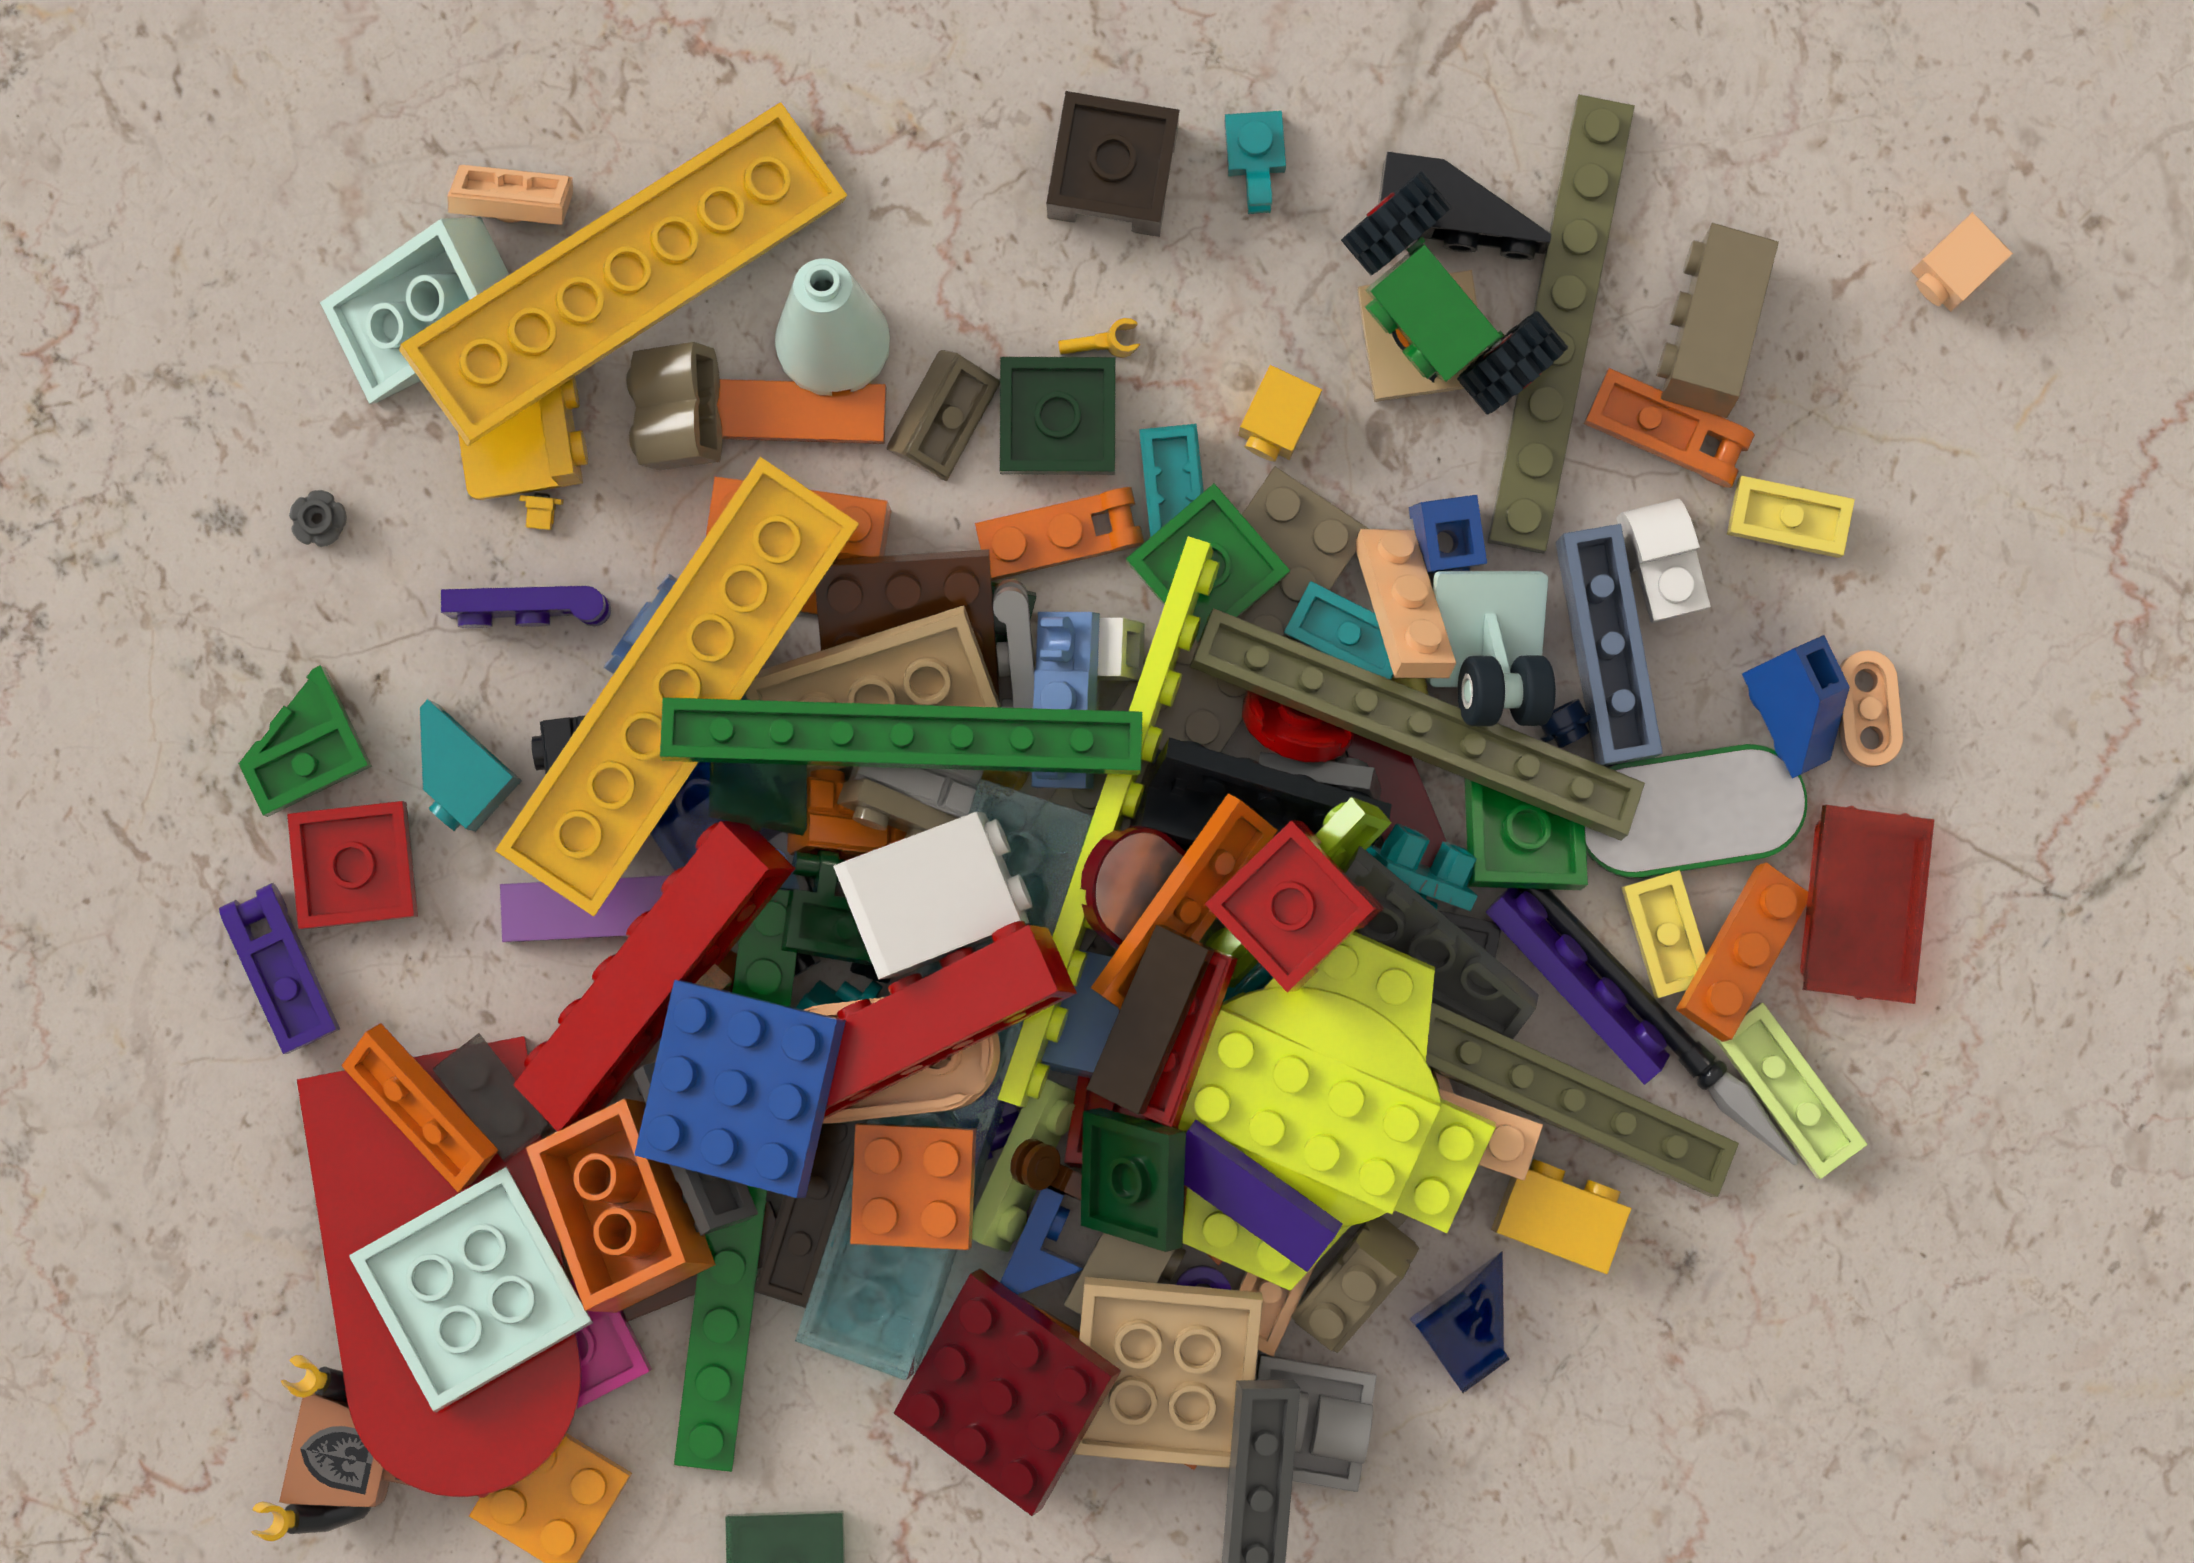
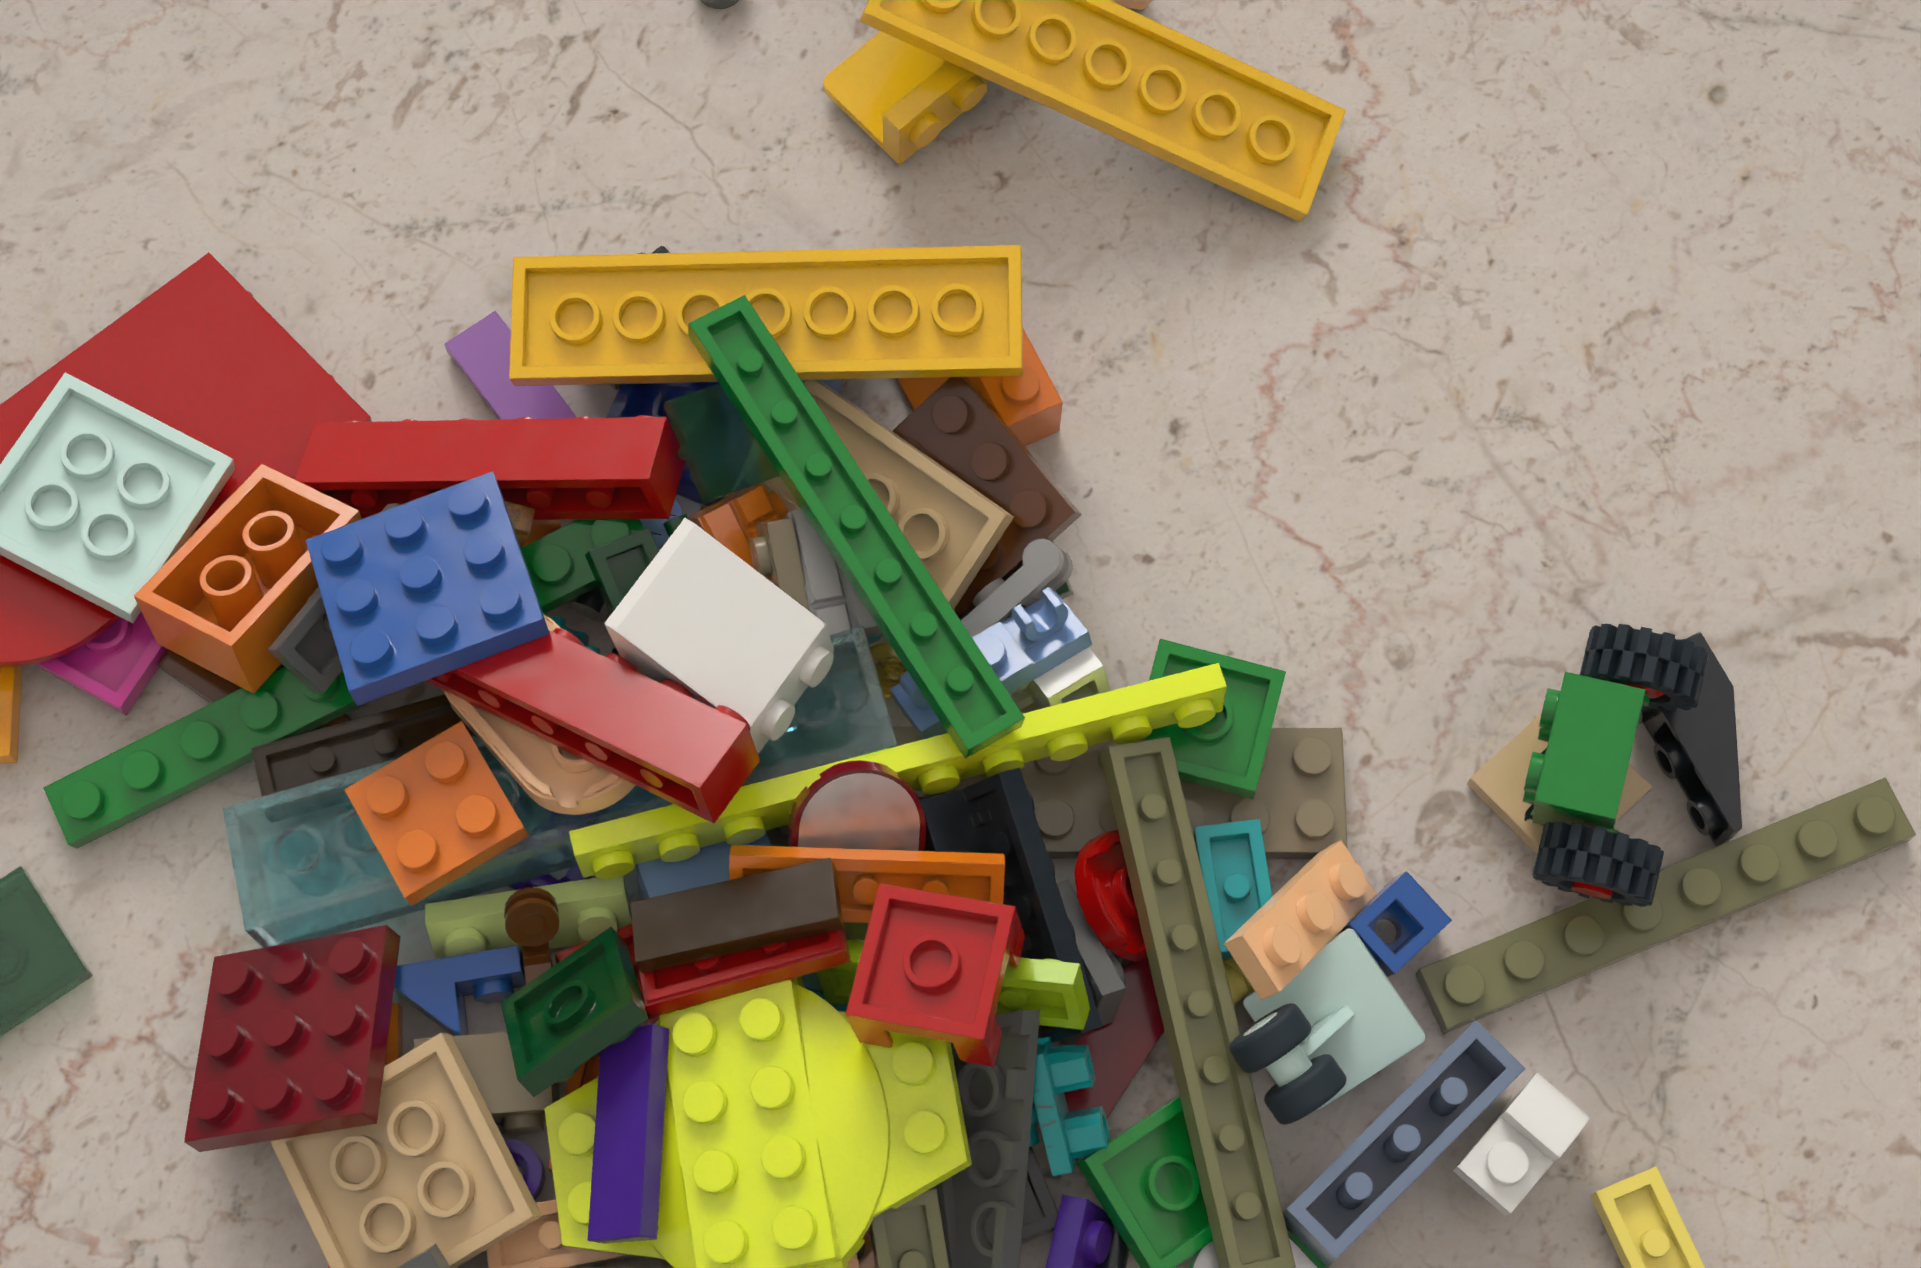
camera: 50 degrees right, 15 degrees down
(279, 970) = (299, 183): dark purple plate -> none
(304, 749) = (510, 85): green wing -> none
(352, 865) = (432, 183): red plate -> none
(419, 1107) = (244, 358): orange plate -> none
(460, 771) = (575, 207): teal slope -> none
(489, 1098) = (299, 397): clear smoke plate -> none
(527, 604) = (758, 177): dark purple plate -> none
(540, 510) = (851, 147): yellow piece -> none
(675, 406) = (1020, 188): dark tan brick -> none
(794, 414) = (1090, 298): orange tile -> none
(830, 331) = (1182, 262): light aqua cone -> none
(943, 414) = (1176, 419): dark tan slope -> none
(1057, 415) = (1246, 510): dark green plate -> none
(1058, 534) = (1139, 579): orange plate -> none
(1102, 341) = (1343, 510): yellow hand -> none
(1112, 161) = (1506, 407): dark brown panel -> none
(1170, 471) = (1274, 634): teal plate -> none
(1256, 150) = (1607, 529): teal plate -> none
(1278, 414) = (1391, 699): yellow brick -> none
(1566, 724) = (1298, 1158): dark blue plate -> none
(1667, 429) = (1648, 1067): orange plate -> none
(1716, 319) = (1783, 1038): dark tan brick -> none

